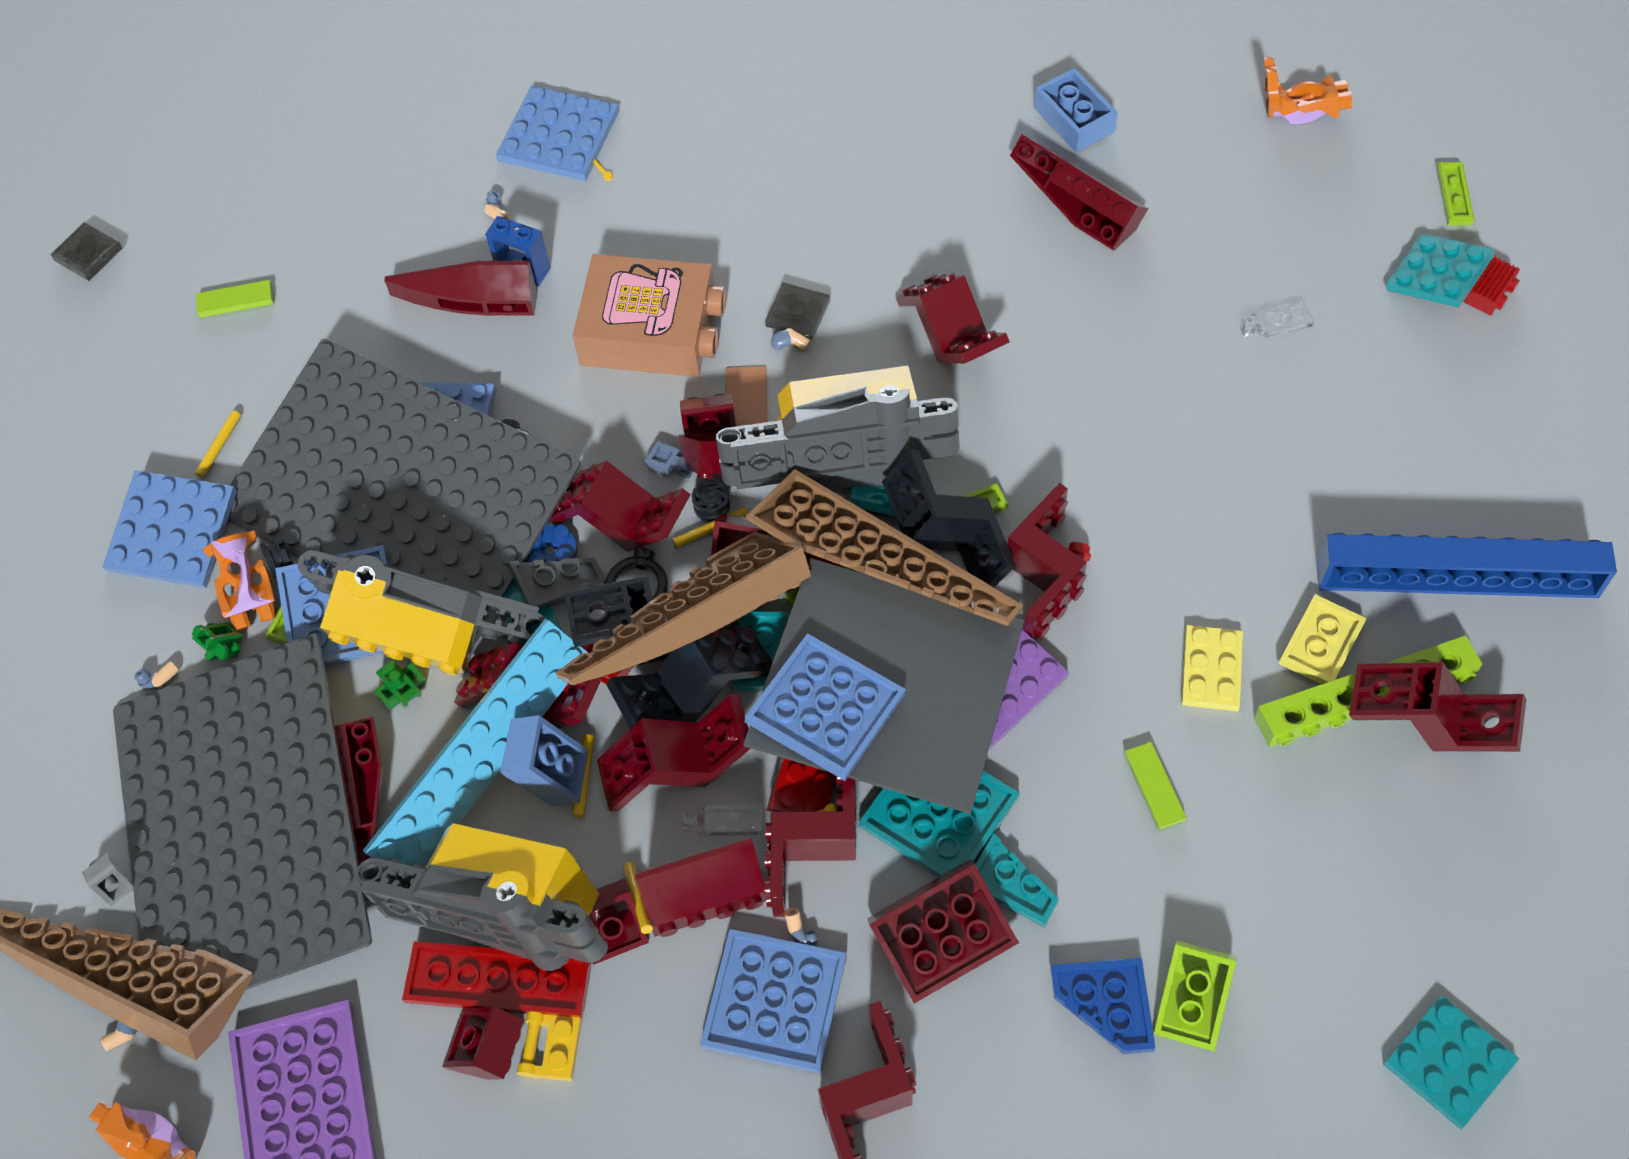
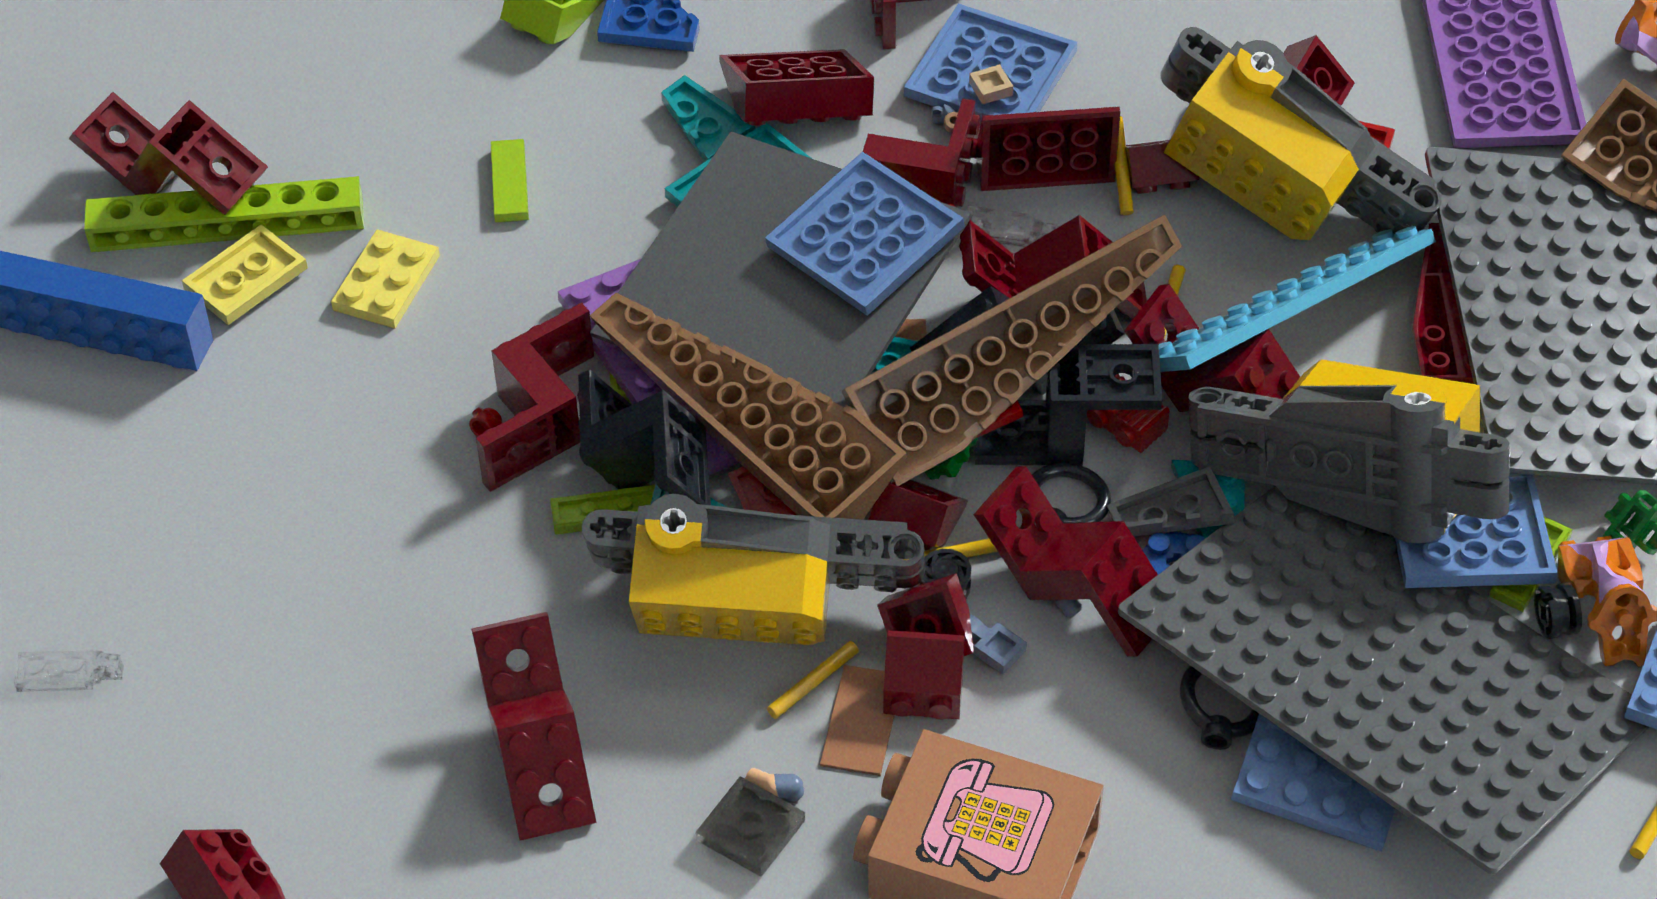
camera: 170 degrees left, 10 degrees down
(544, 760) = (1218, 271): medium blue brick -> none
(766, 957) = (991, 84): none -> tan plate

